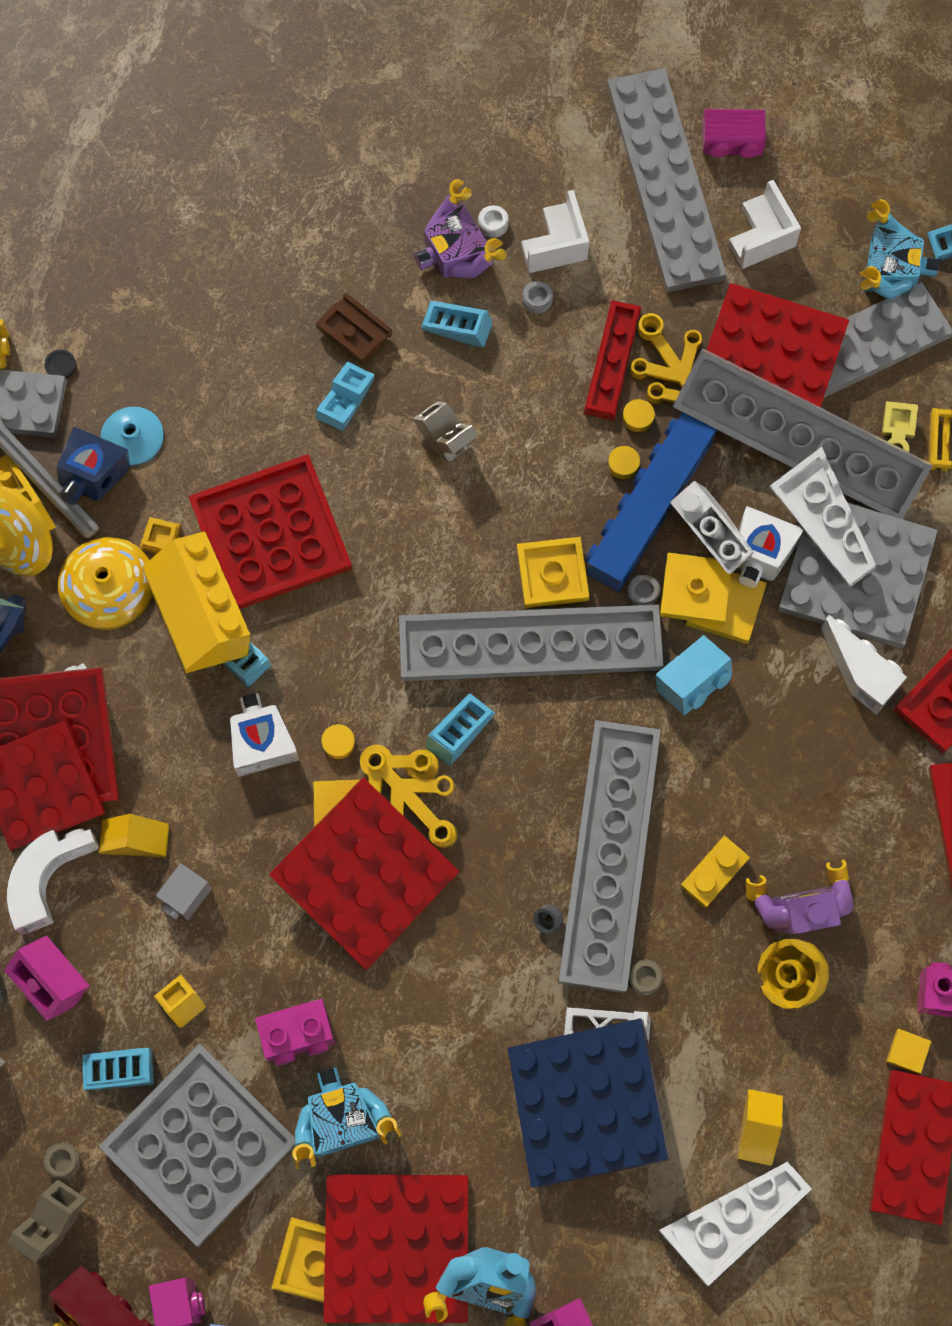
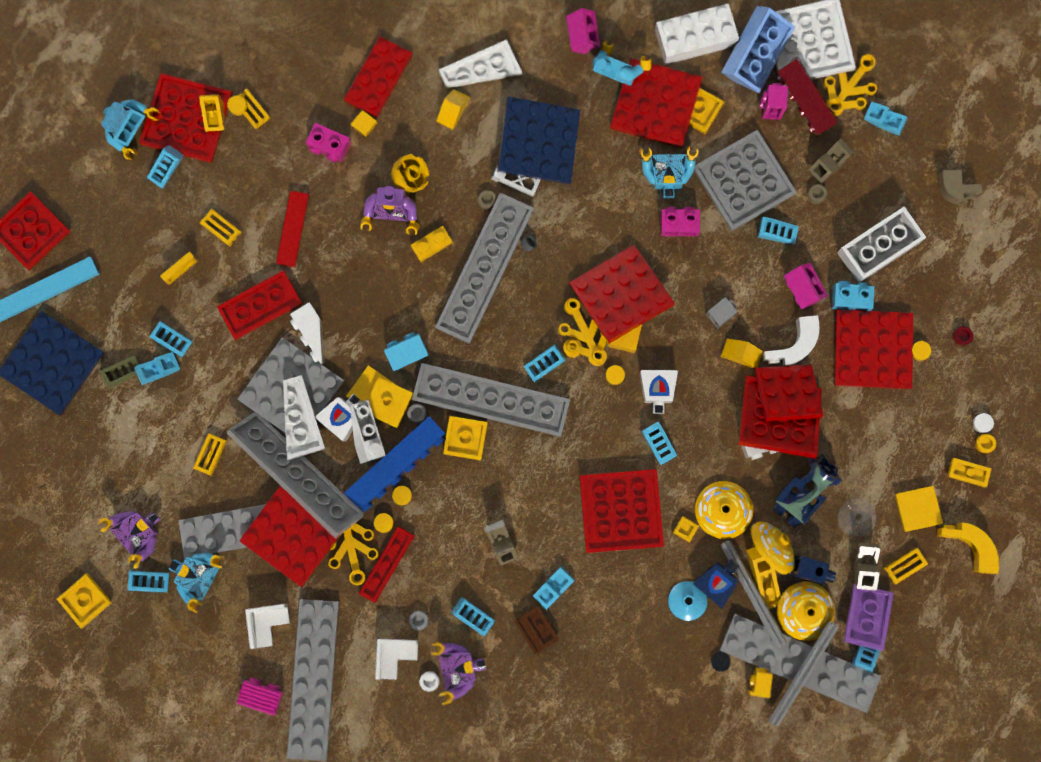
camera: 160 degrees left, 10 degrees up
(180, 1001) = (737, 258): yellow slope -> none
(197, 603) = (675, 473): yellow slope -> none
(899, 423) = (234, 470): light yellow plate -> none

